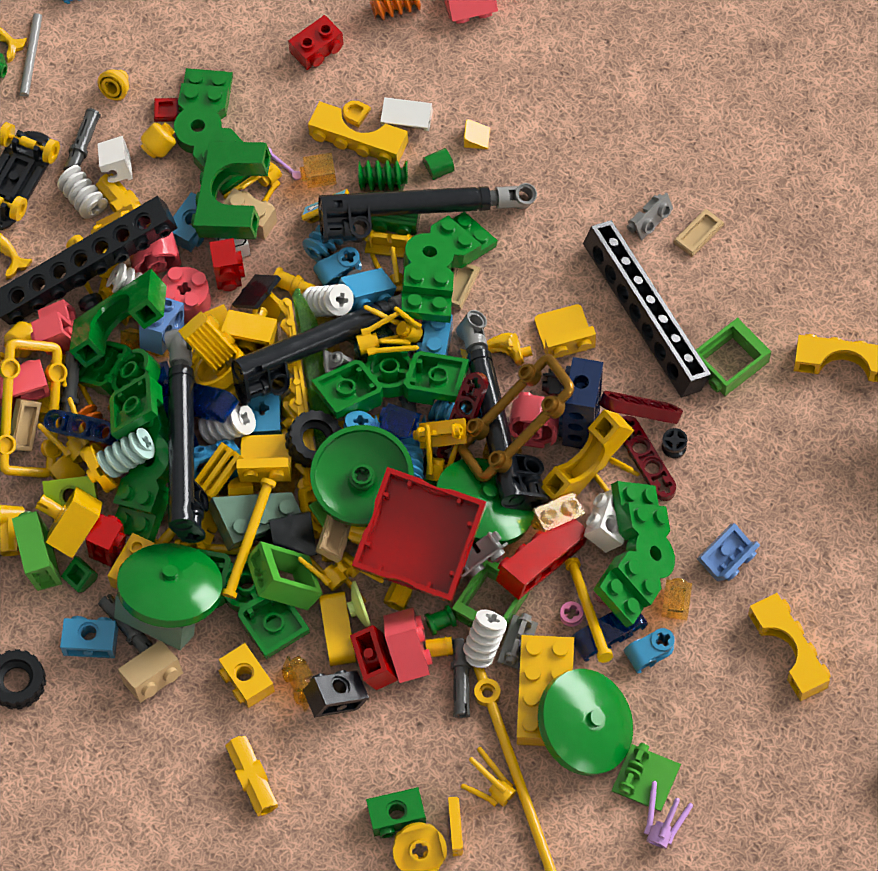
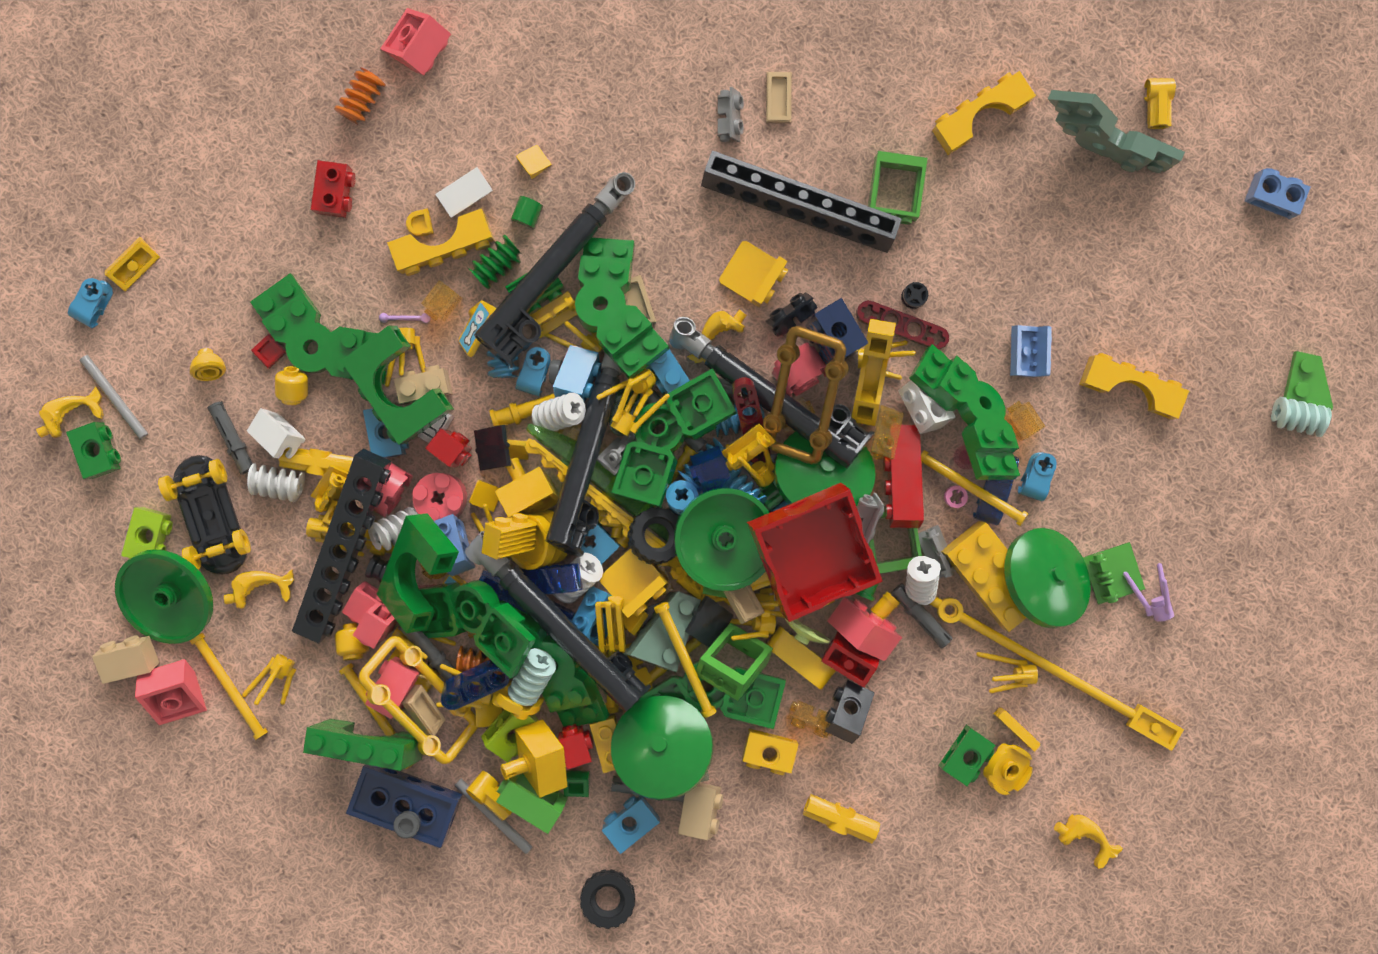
camera: 45 degrees left, 25 degrees up
(640, 407) = (889, 277): dark red beam -> none

